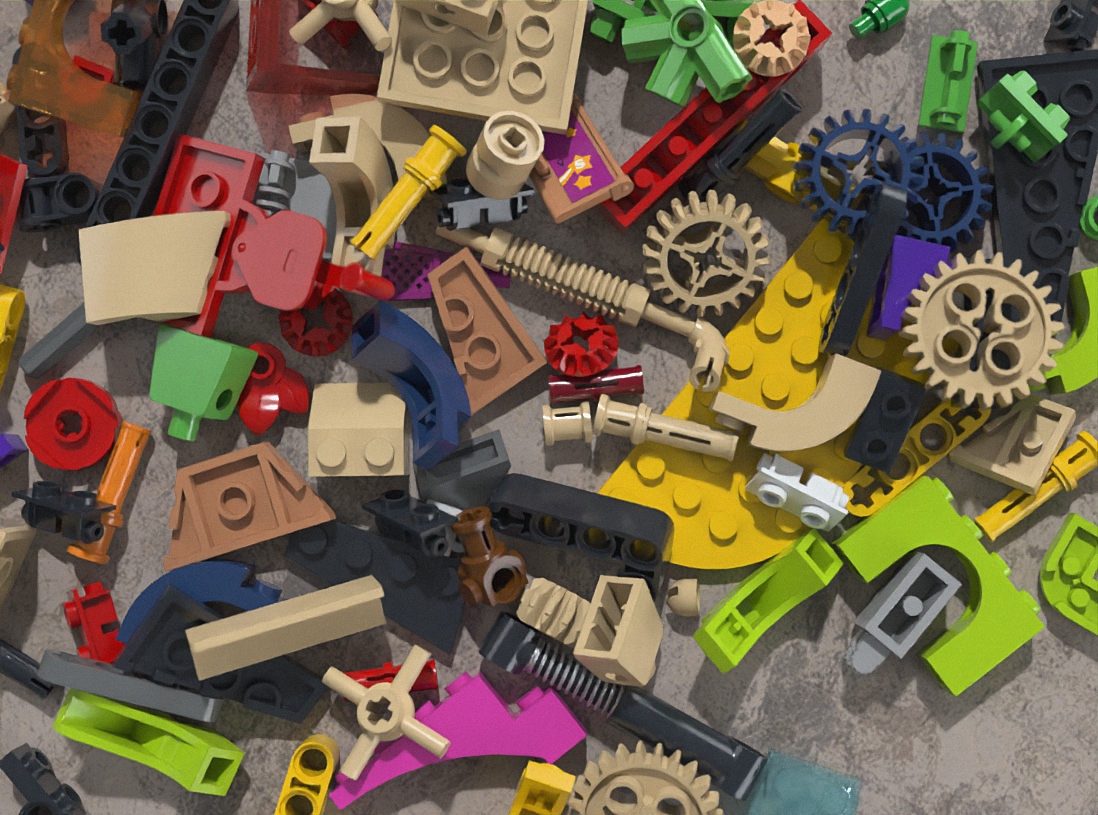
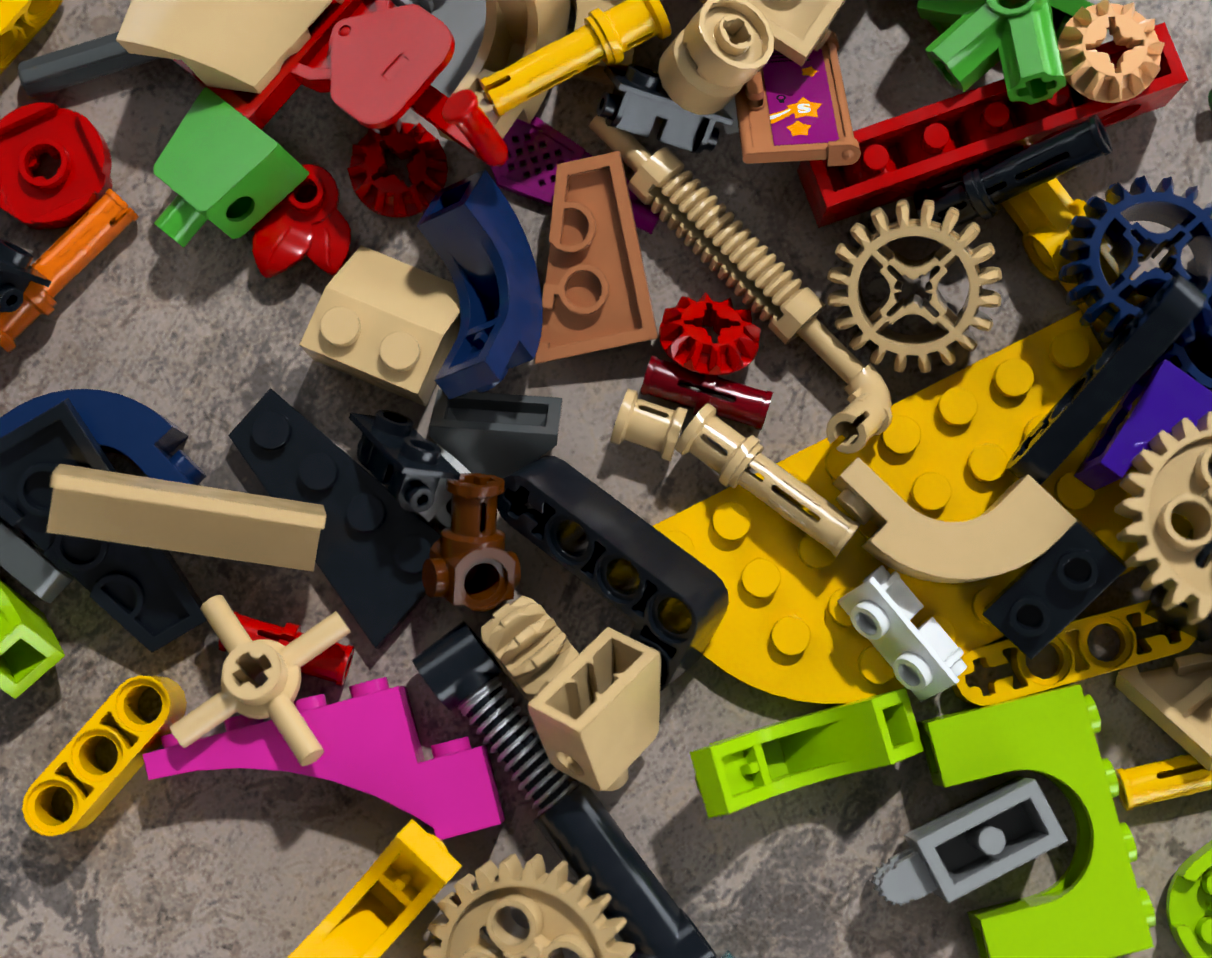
camera: 30 degrees right, 5 degrees down
(238, 504) = (202, 347): nougat wing -> none
(684, 597) = (702, 707): tan hinge -> none

